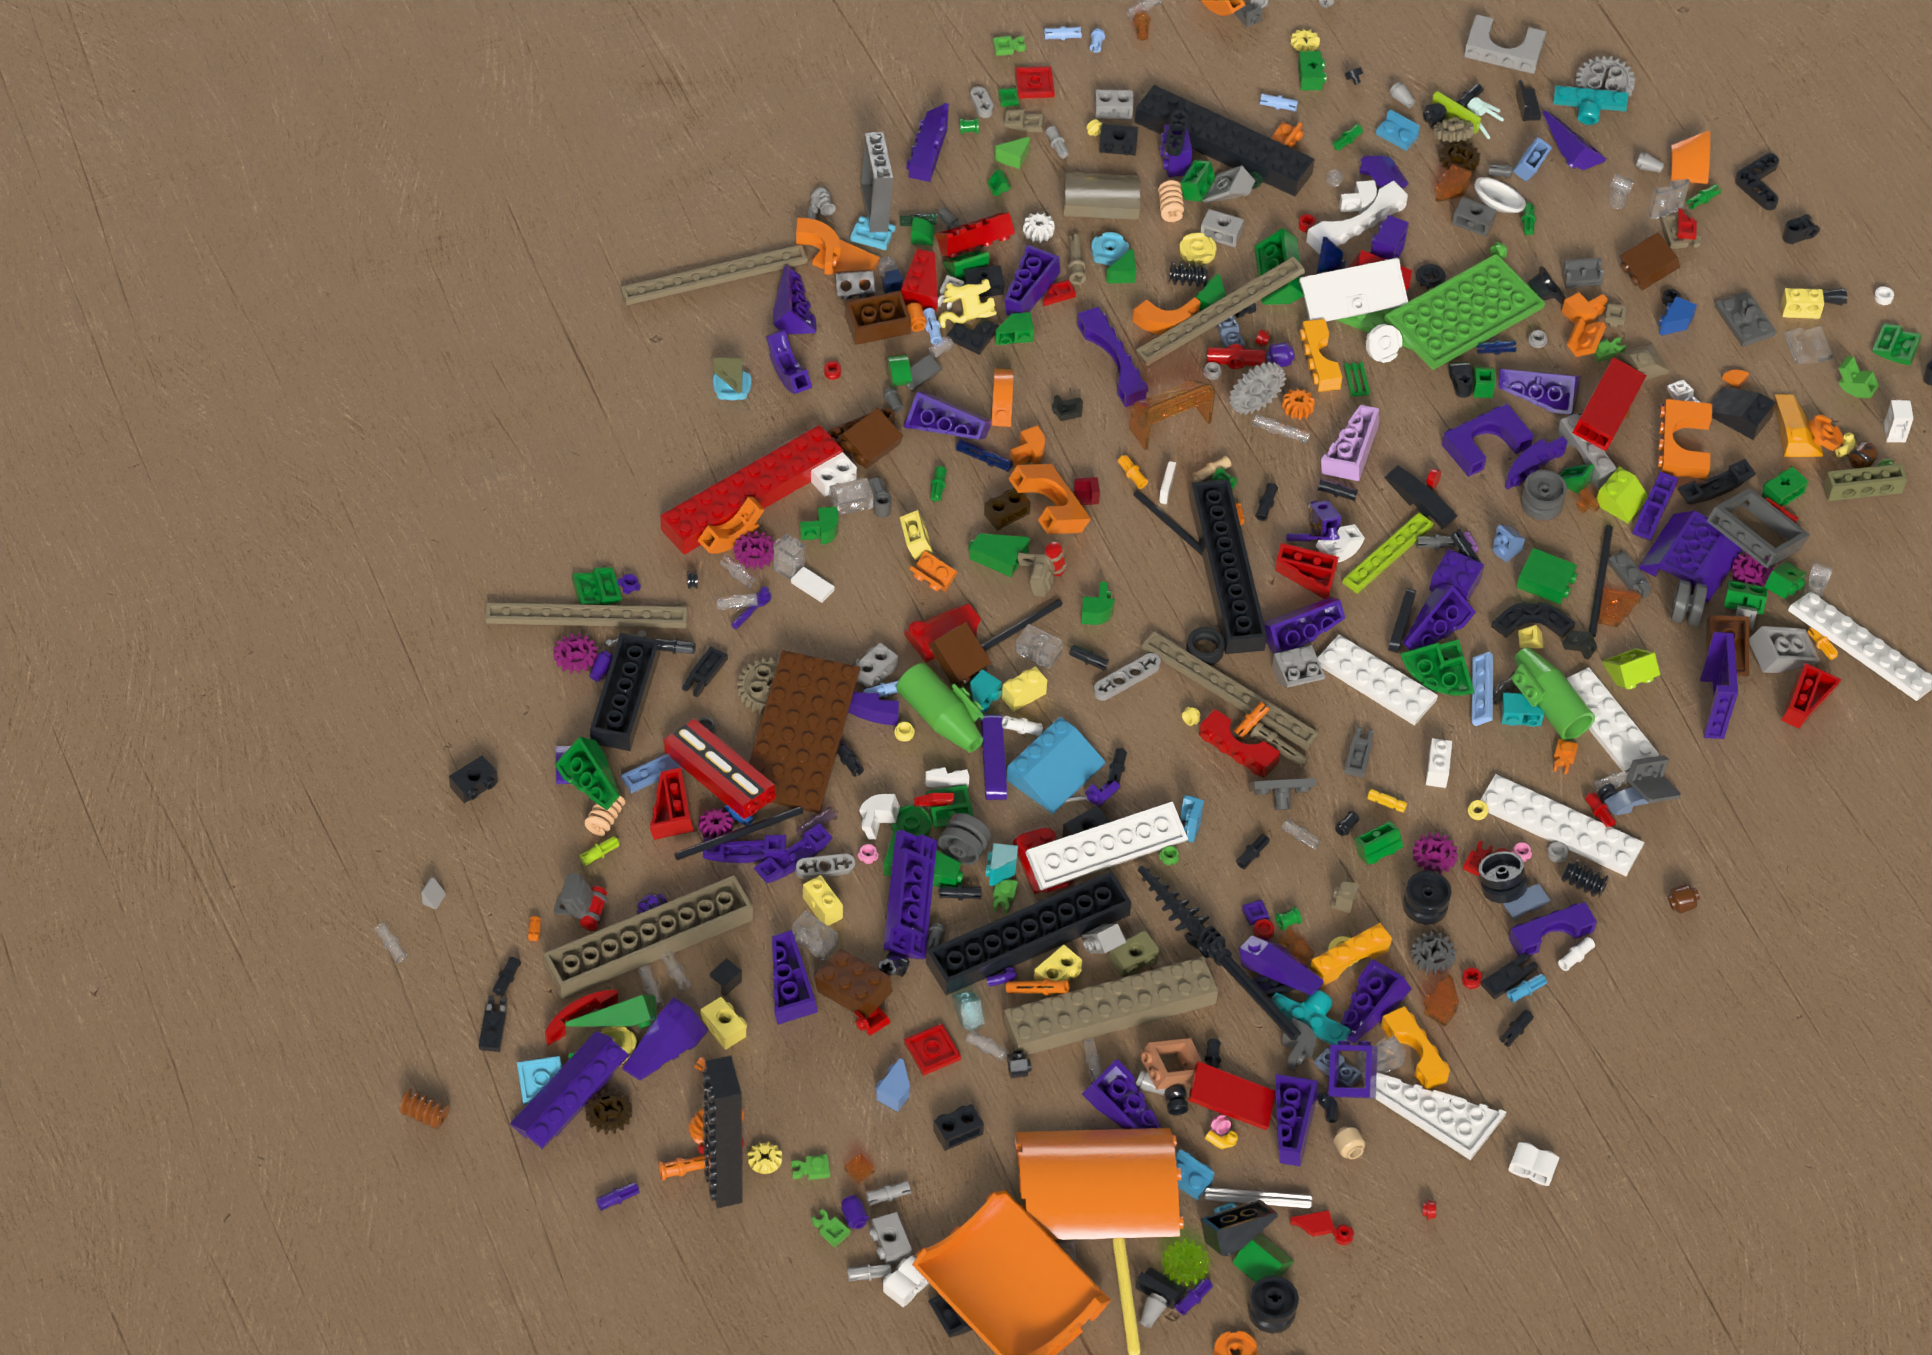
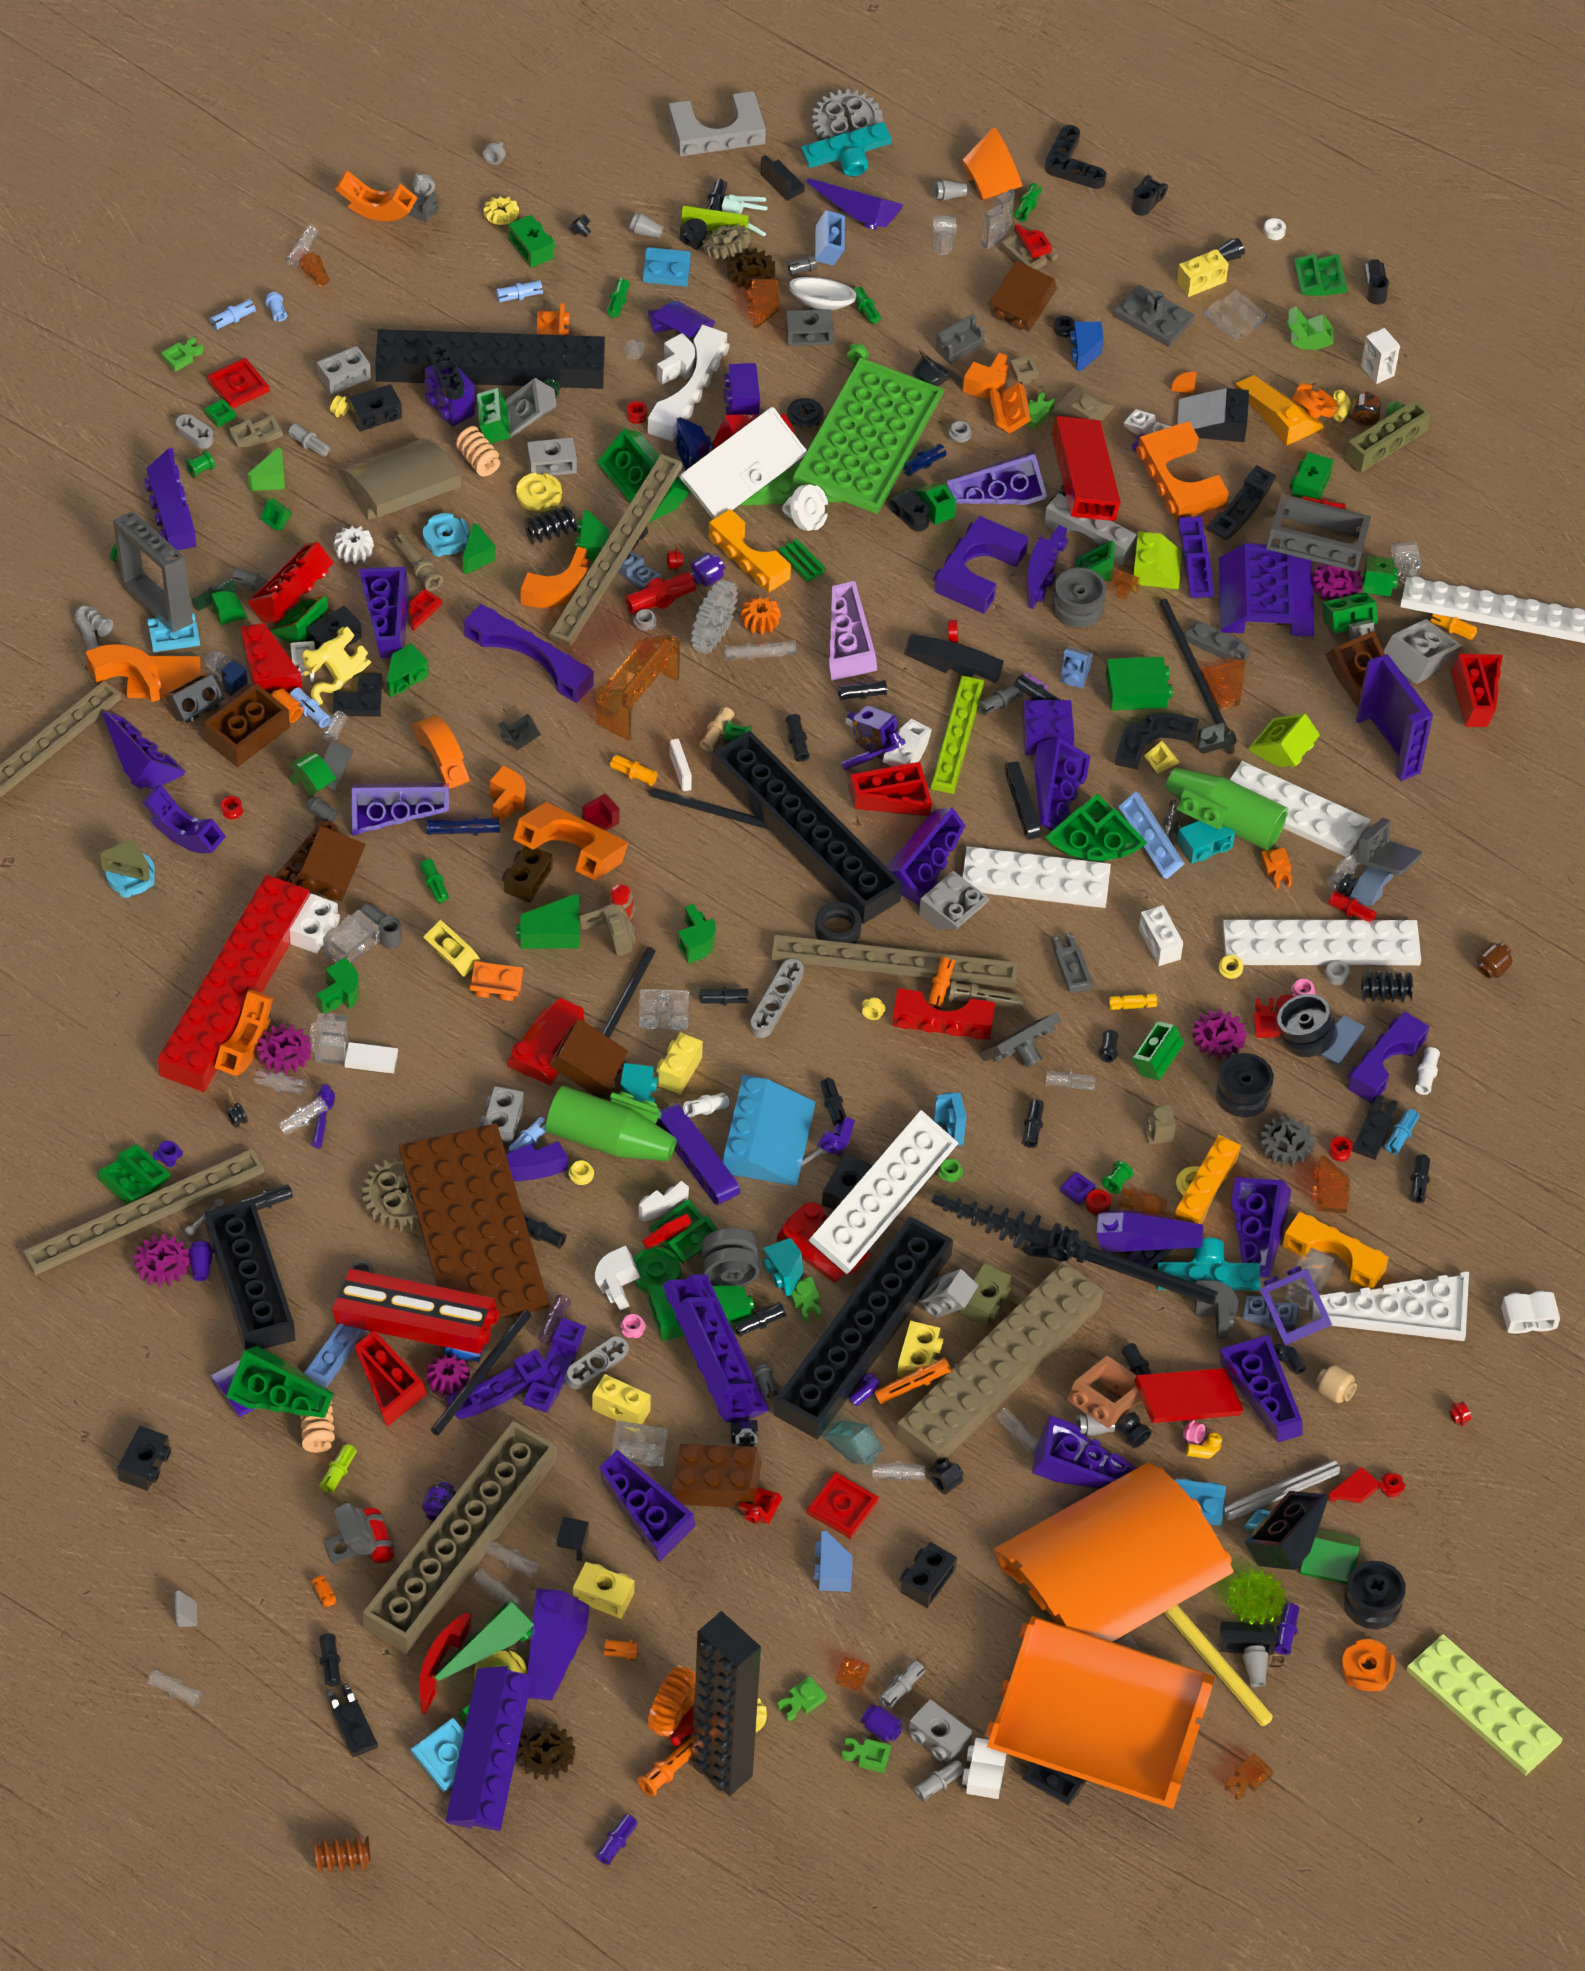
camera: 30 degrees left, 0 degrees up
(705, 670) = (319, 1208): black hinge -> none
(1689, 603) = (1301, 645): dark grey wheel -> none

